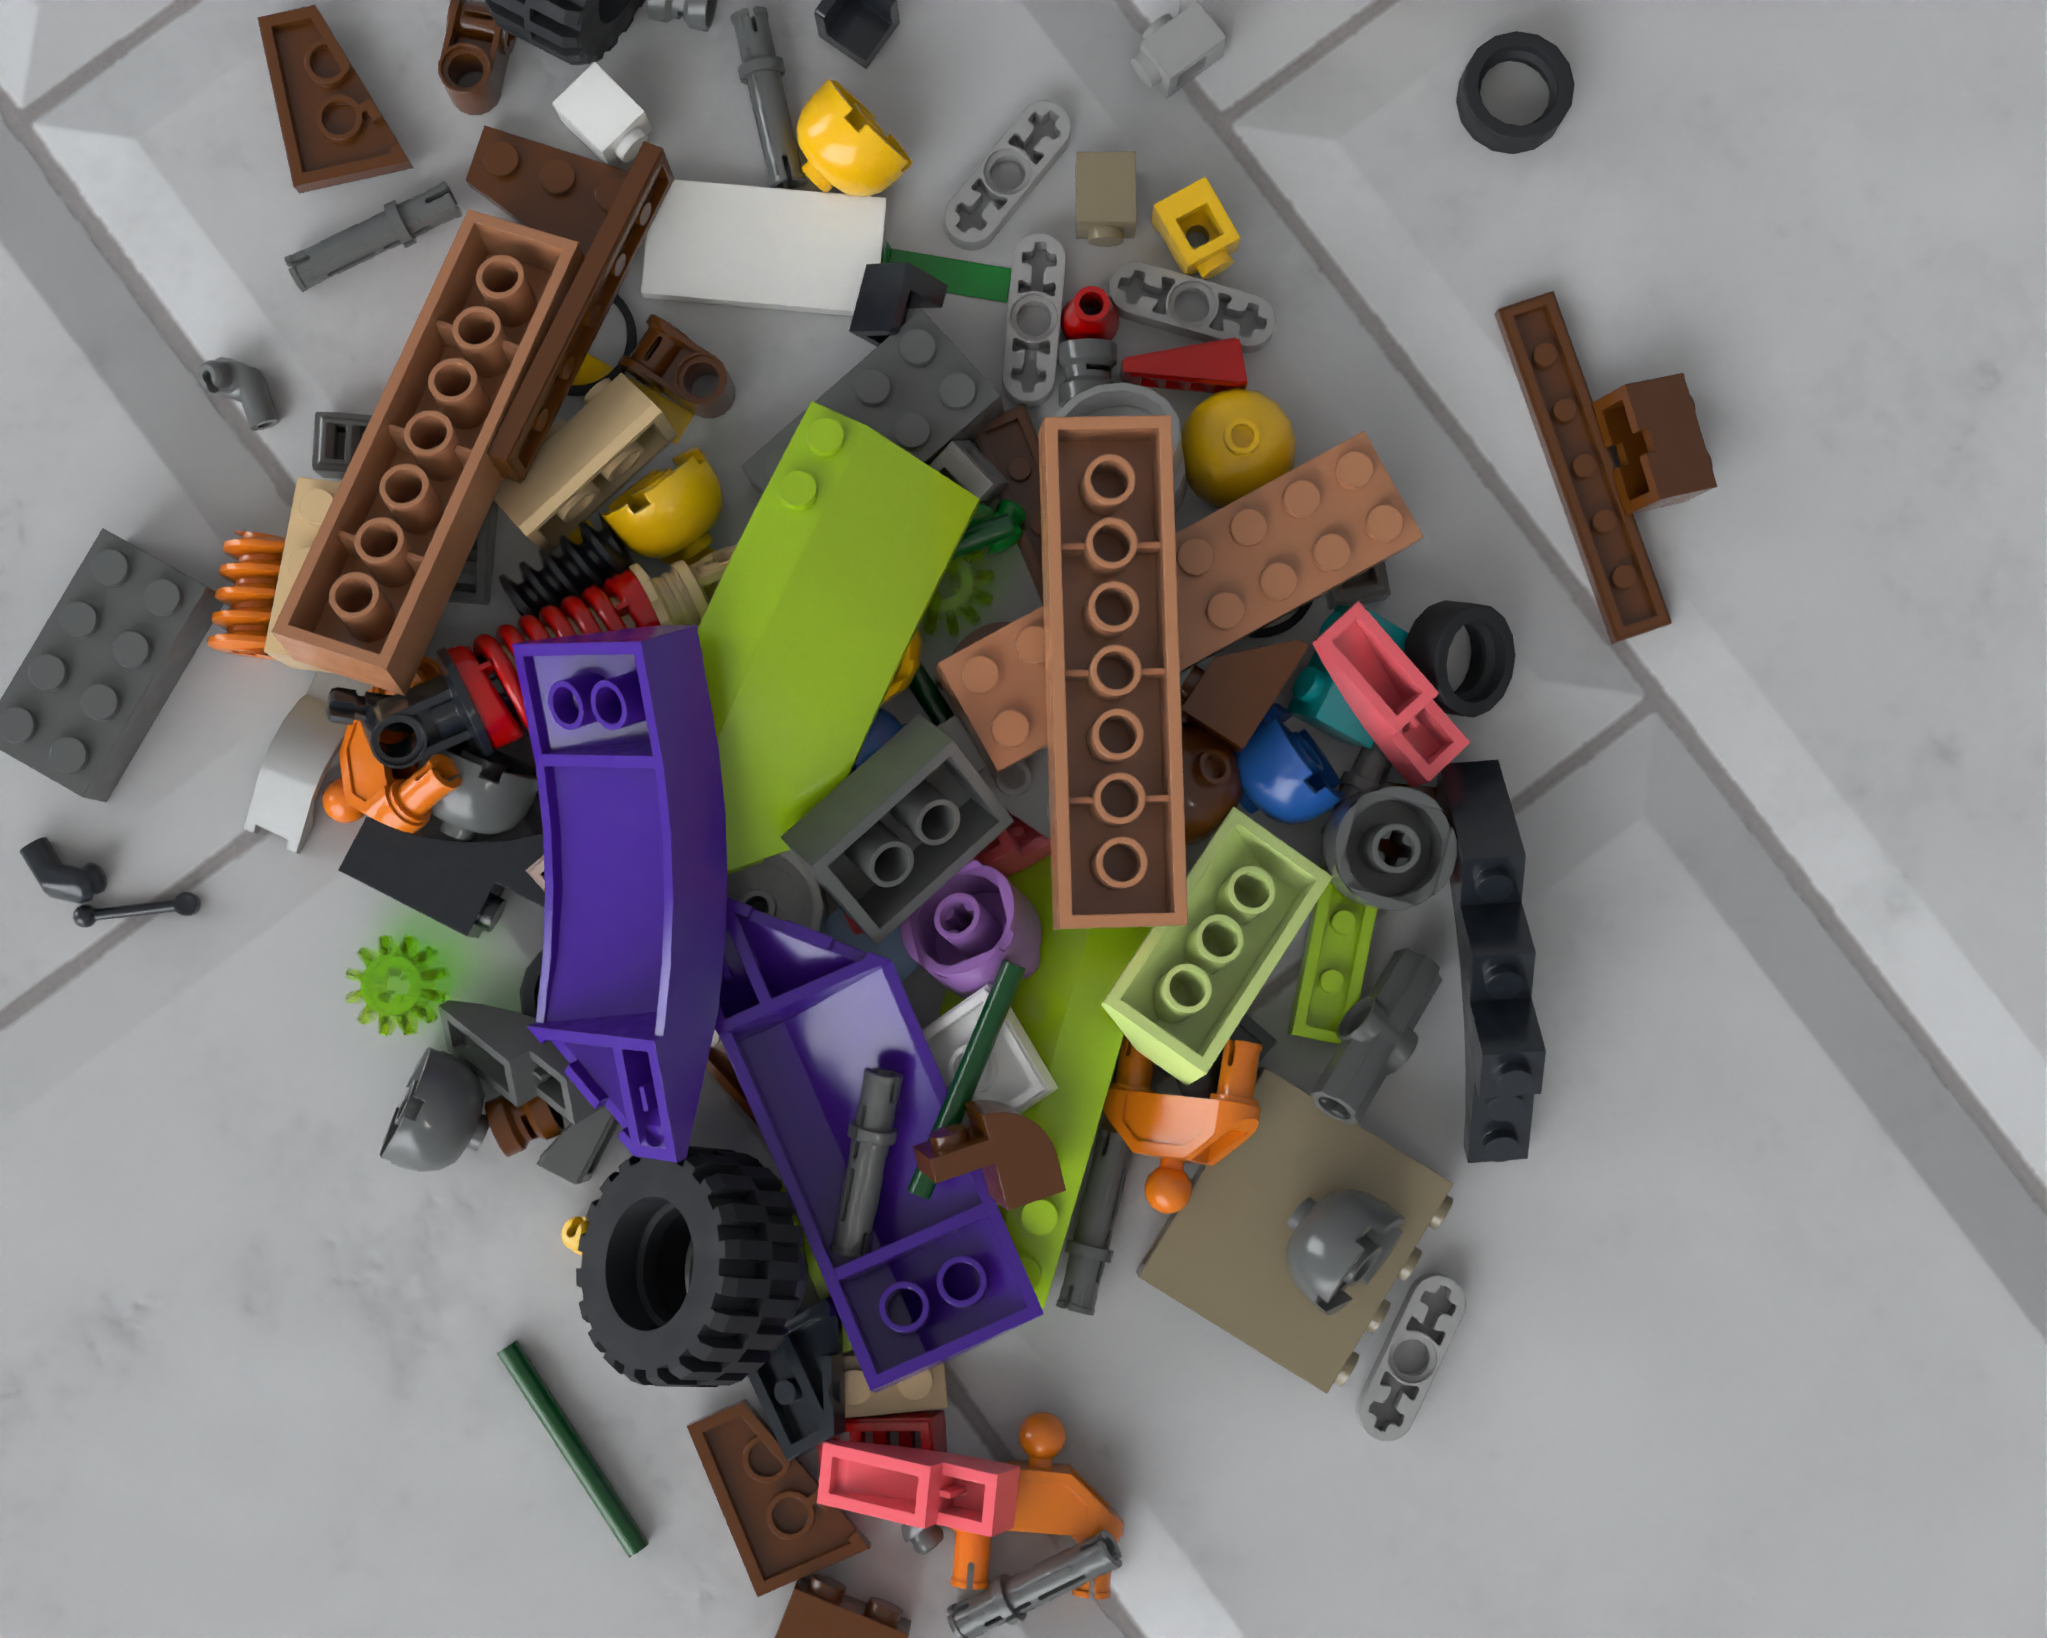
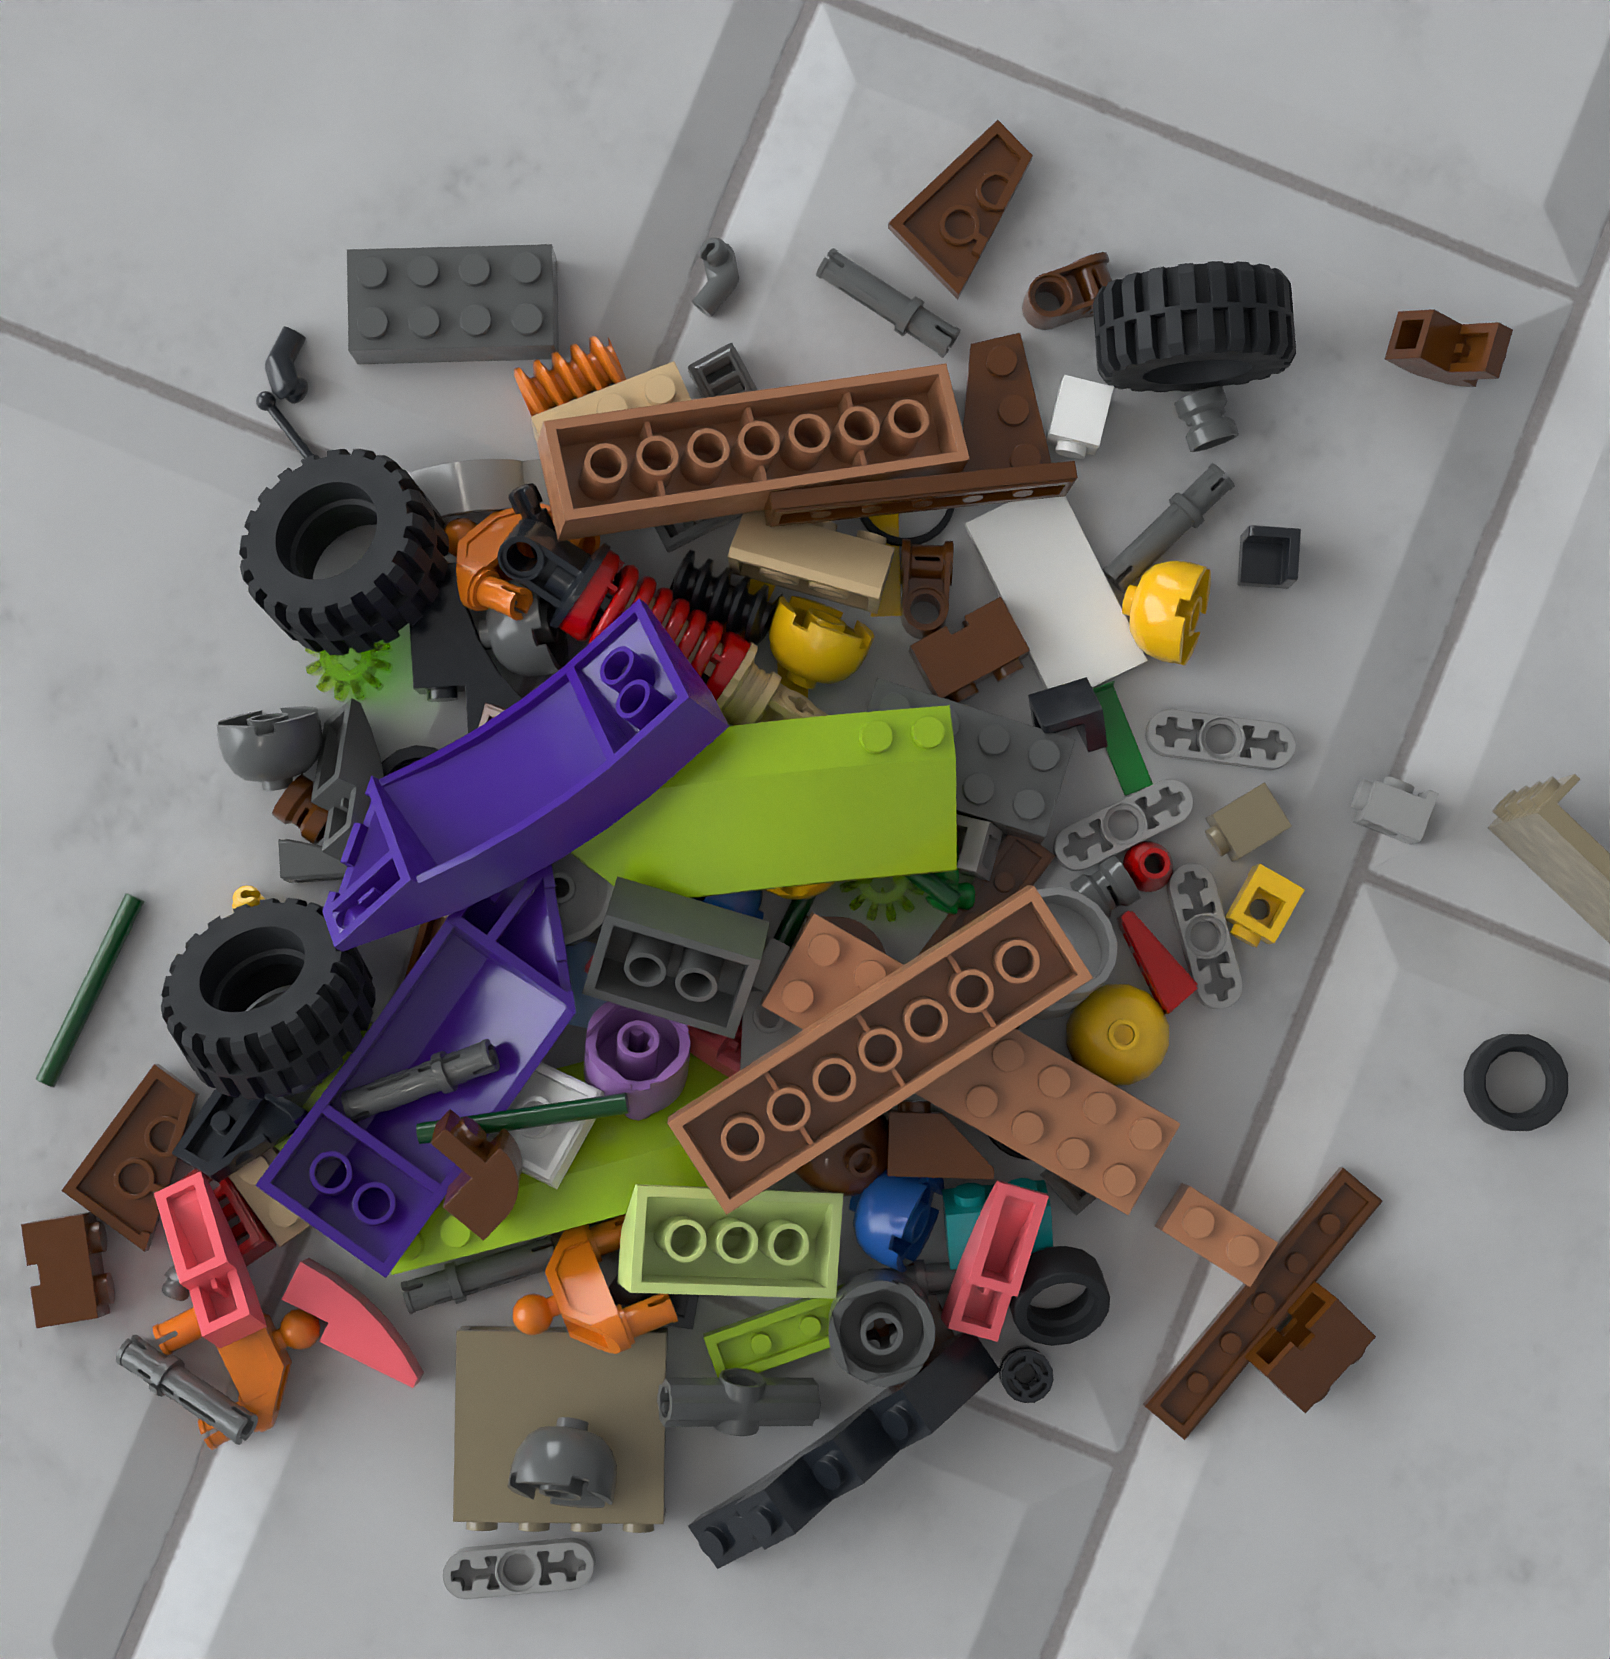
camera: 60 degrees right, 0 degrees up
(223, 930) = (307, 515): none -> black tyre
(775, 352) = (983, 648): none -> reddish brown brick
(1068, 1376) = (353, 1322): none -> coral slope
(1490, 469) = (1216, 1234): none -> nougat brick
(1510, 744) = (1021, 1367): none -> black wheel

